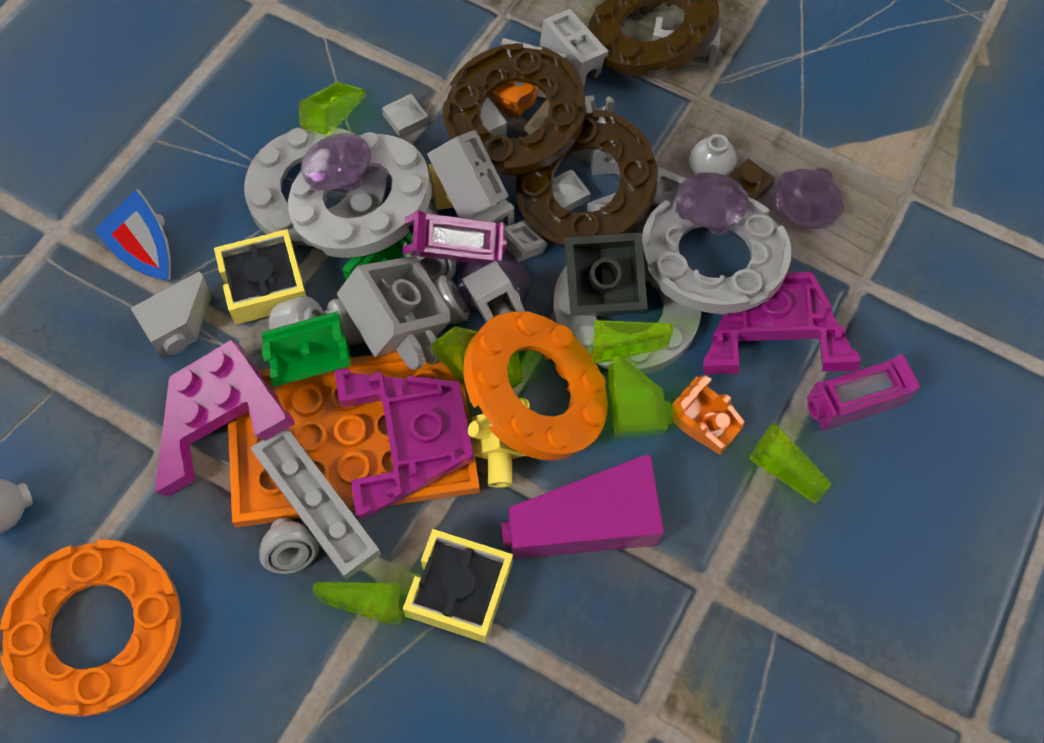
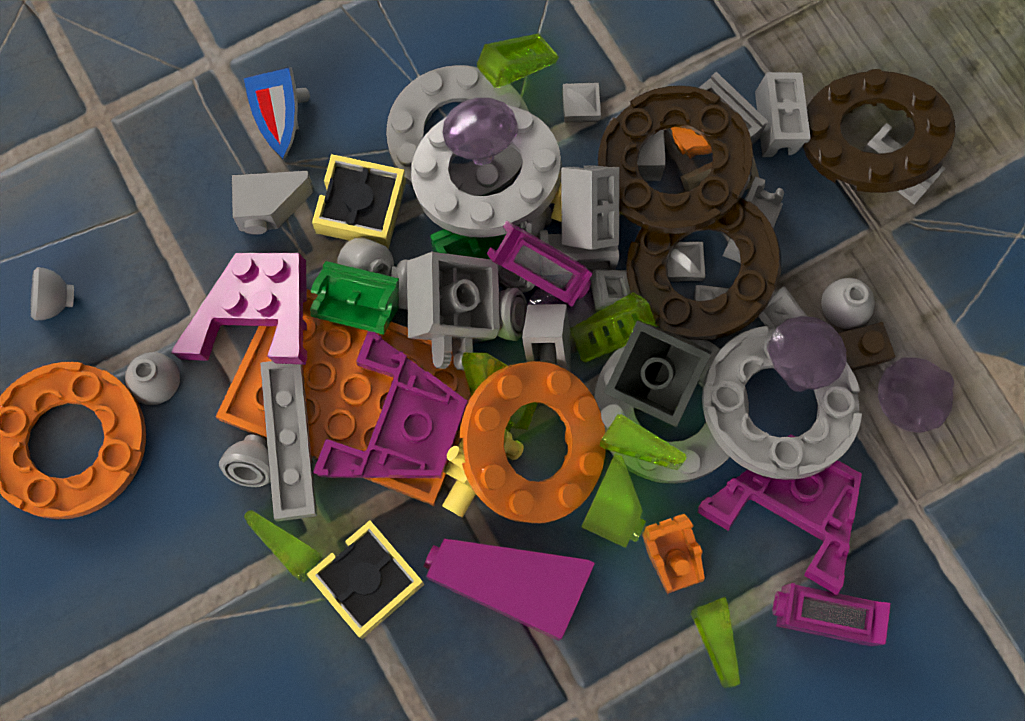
camera: 30 degrees right, 10 degrees up
(149, 524) = (152, 378): none -> light grey brick
(548, 243) = (621, 309): none -> clear neon green slope

